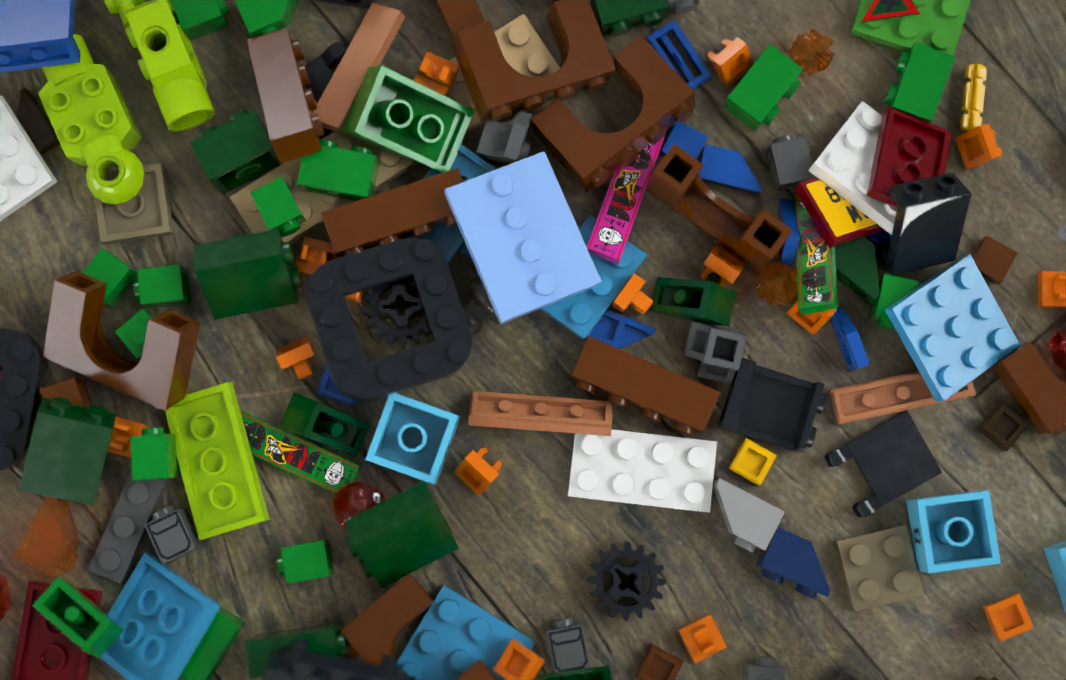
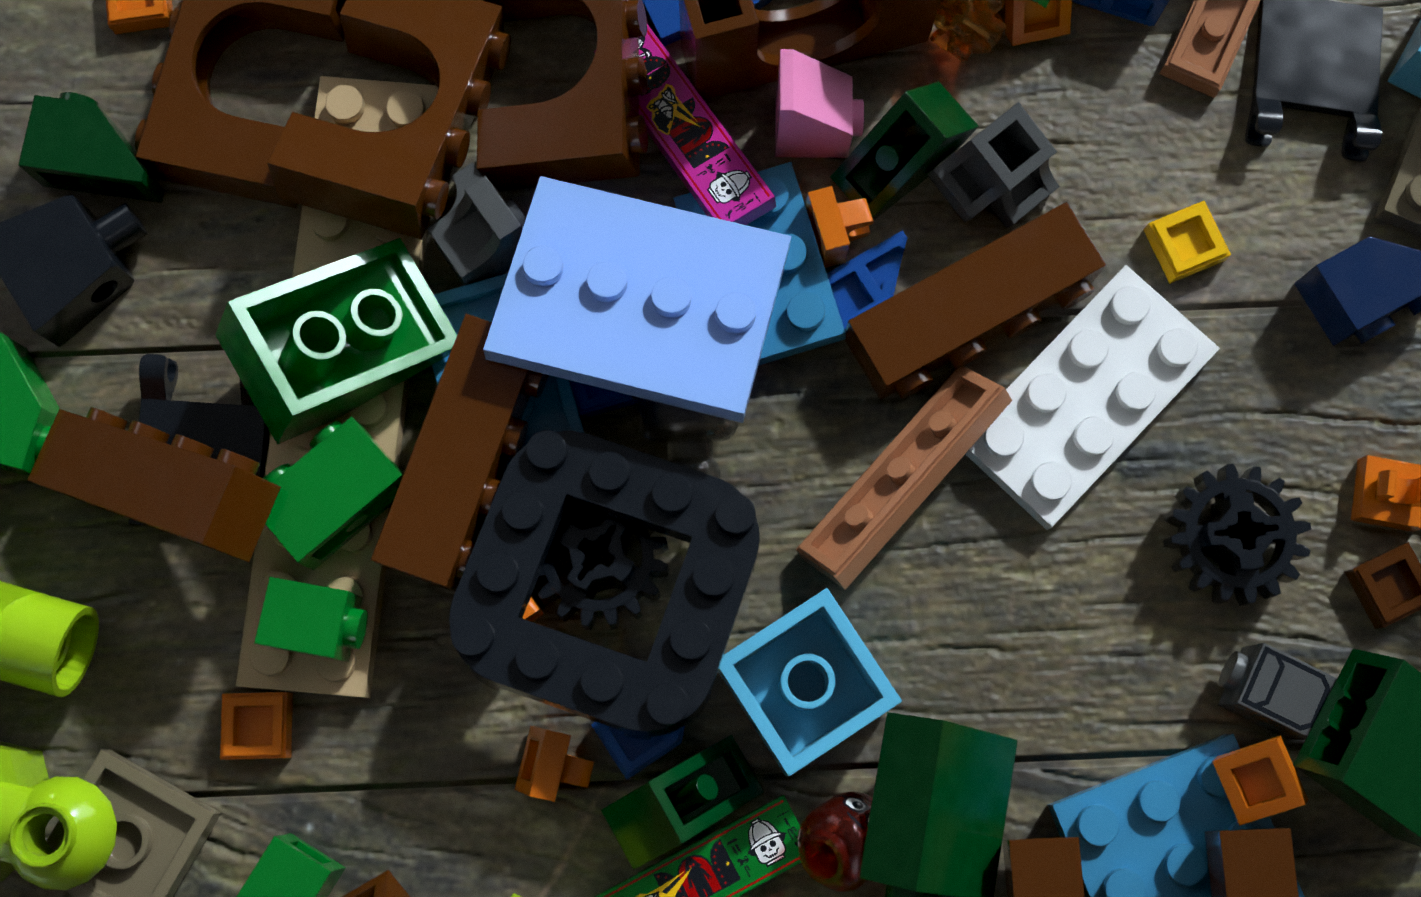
camera: 50 degrees left, 5 degrees down
(220, 218) = (256, 726): none -> orange tile
(235, 151) = (177, 617): dark green brick -> none
(247, 273) = (370, 743): dark green brick -> none
(313, 255) = (423, 627): orange tile -> none
(364, 51) = (186, 324): nougat tile -> none
(437, 73) = (303, 246): orange tile -> none
(477, 472) = (922, 629): orange tile -> none
(678, 246) = (814, 109): none -> bright pink slope
(724, 264) = (885, 72): orange tile -> none
(747, 516) = (1264, 301): light grey slope -> none
(772, 407) = (1136, 155): black panel -> none

